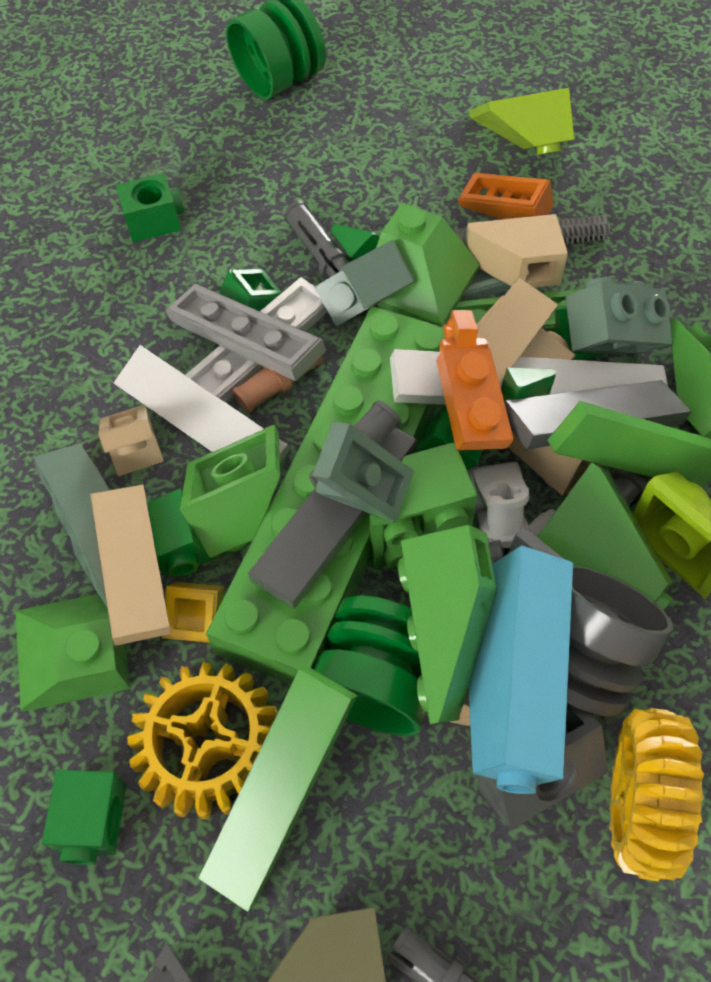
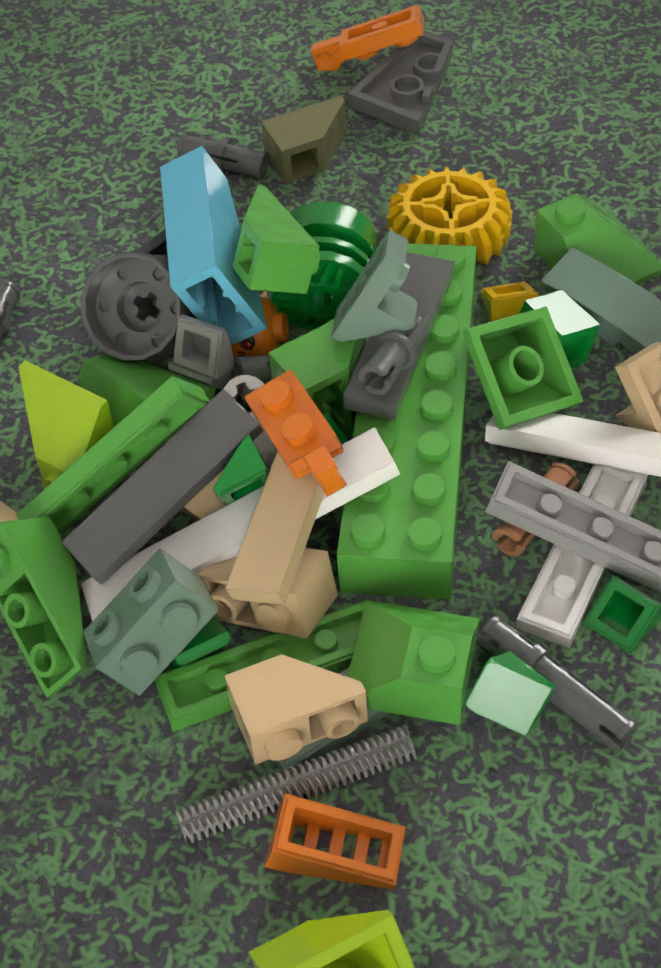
camera: 165 degrees right, 10 degrees down
(84, 815) = (515, 161): green brick -> none
(129, 565) = (571, 271): tan tile -> none
(277, 787) = (370, 181): tile -> none
(364, 282) = (468, 590): sand green slope -> none
(656, 794) = (86, 229): yellow gear -> none

